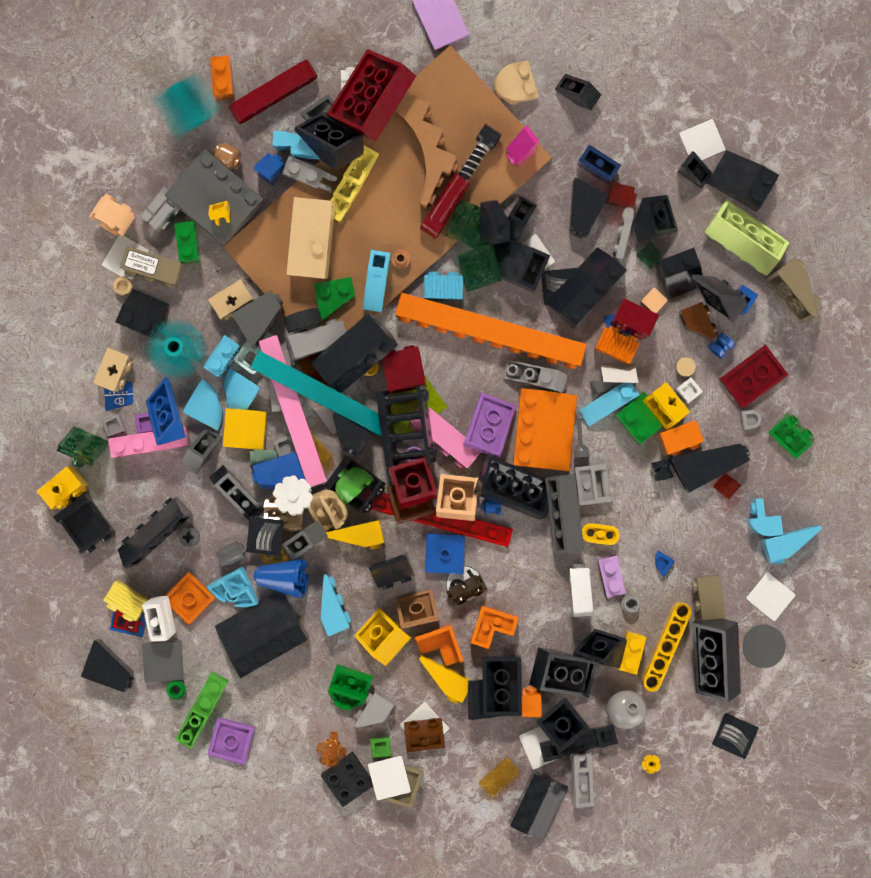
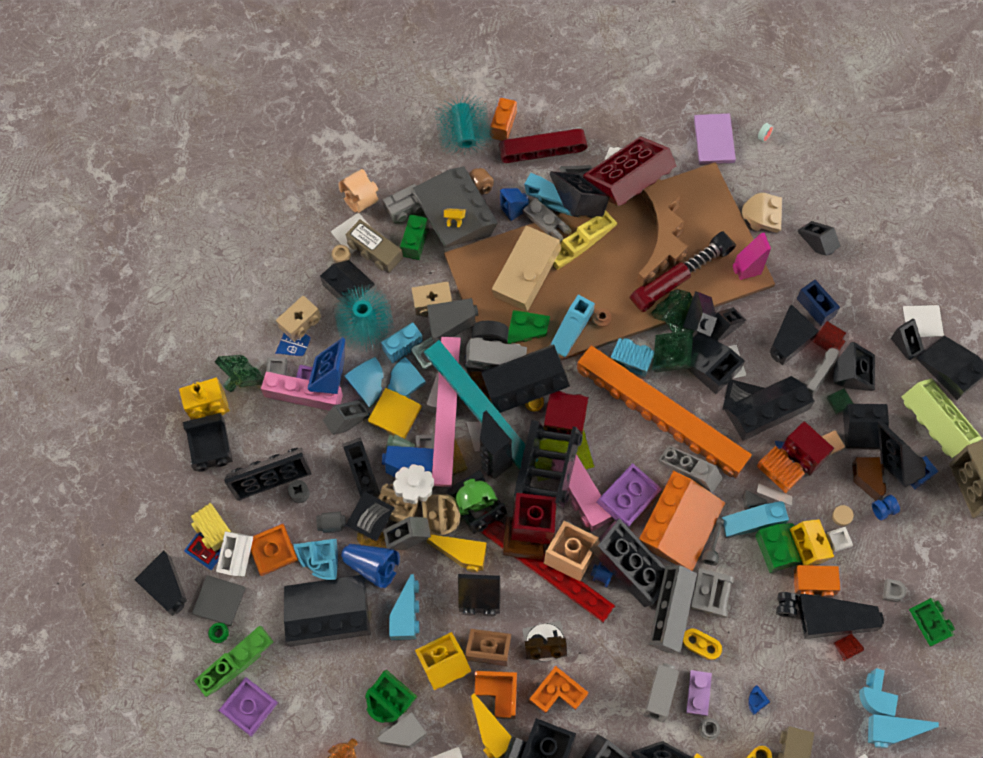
camera: 20 degrees right, 20 degrees down
(444, 553) = (537, 604): blue plate -> none
(753, 377) = (909, 551): dark red tile -> none

